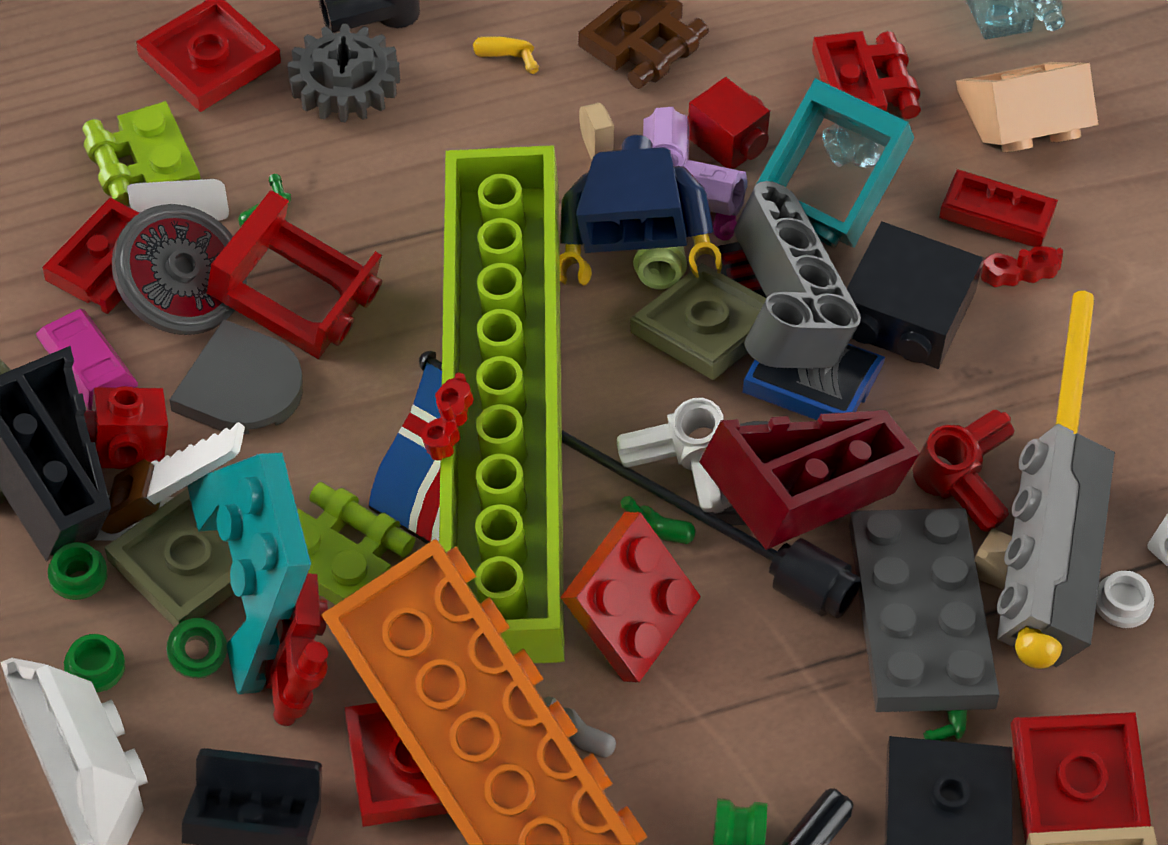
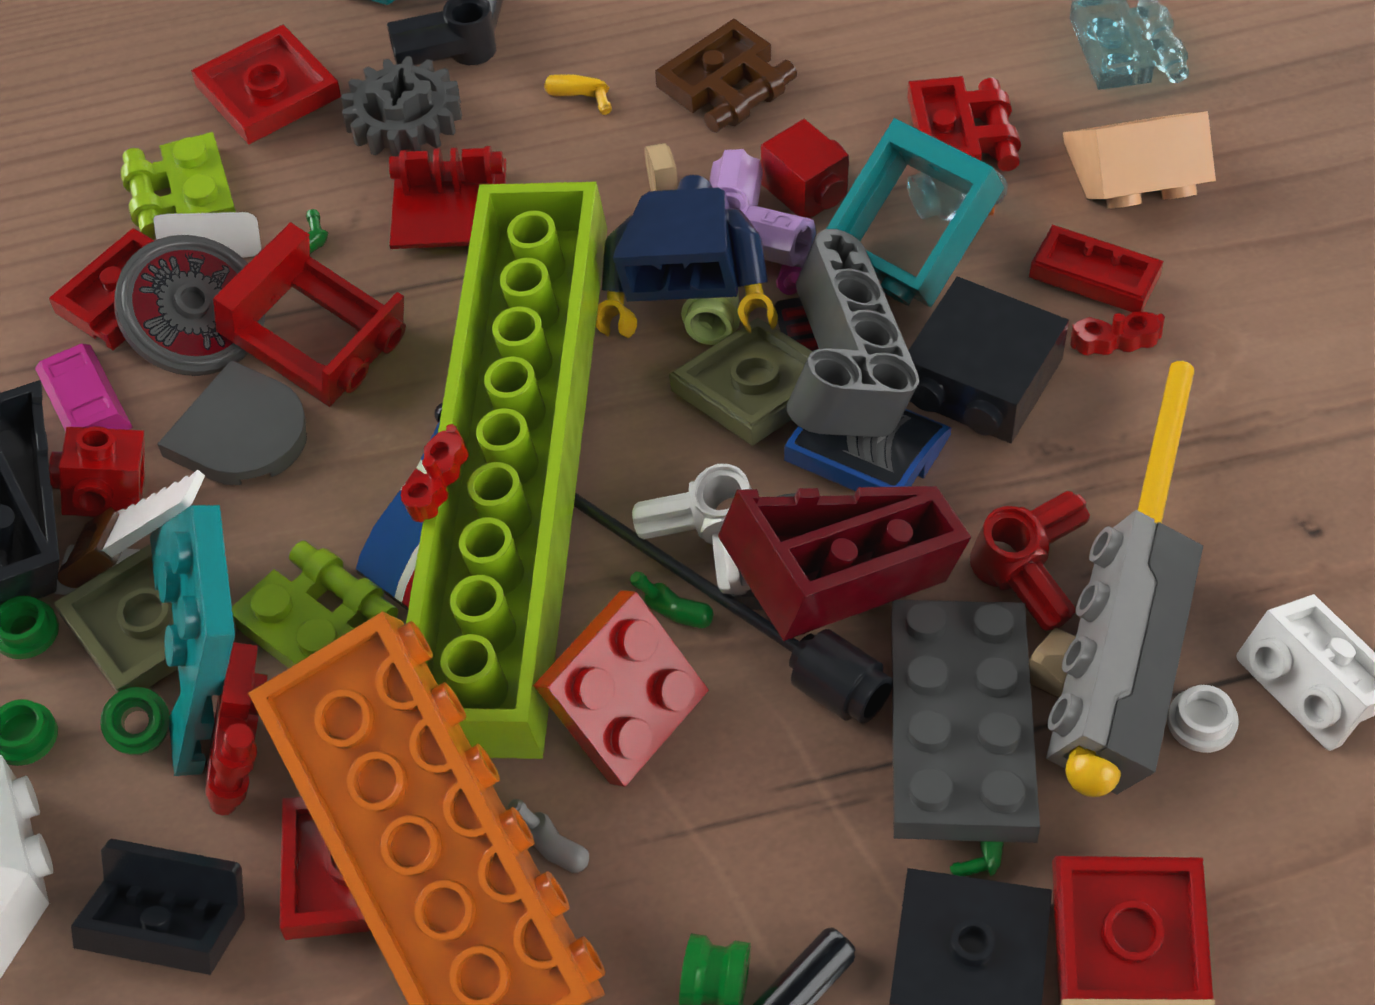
camera: 10 degrees right, 0 degrees up
(397, 161) = (439, 198): none -> red hinge

